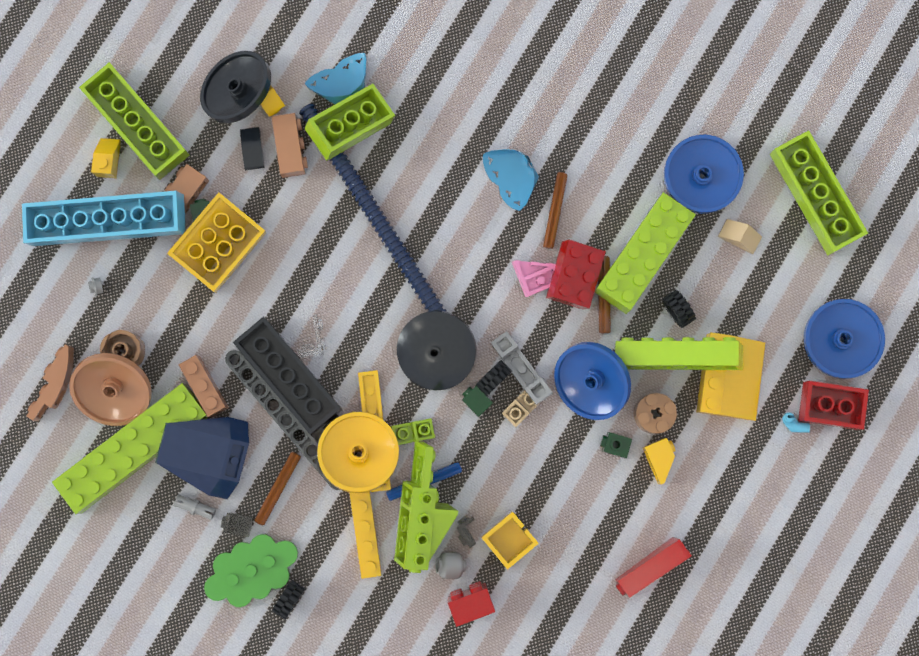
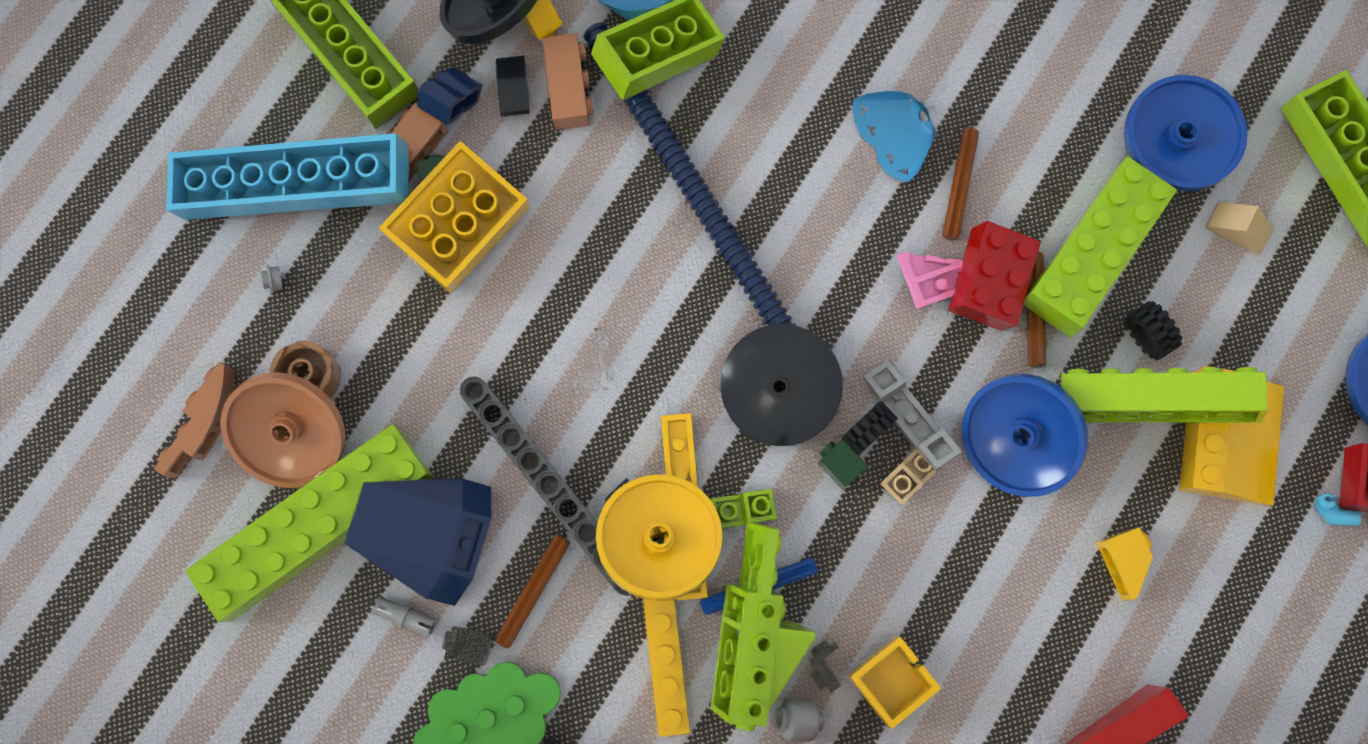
camera: 10 degrees right, 5 degrees down
(106, 158) = (298, 96): yellow slope -> none
(203, 386) = (425, 430): nougat brick -> none
(209, 157) = (449, 95): none -> dark blue brick
(287, 375) = (554, 417): black brick -> none
(615, 444) = (1058, 537): dark green brick -> none
(665, 409) = (1134, 481): medium nougat brick -> none

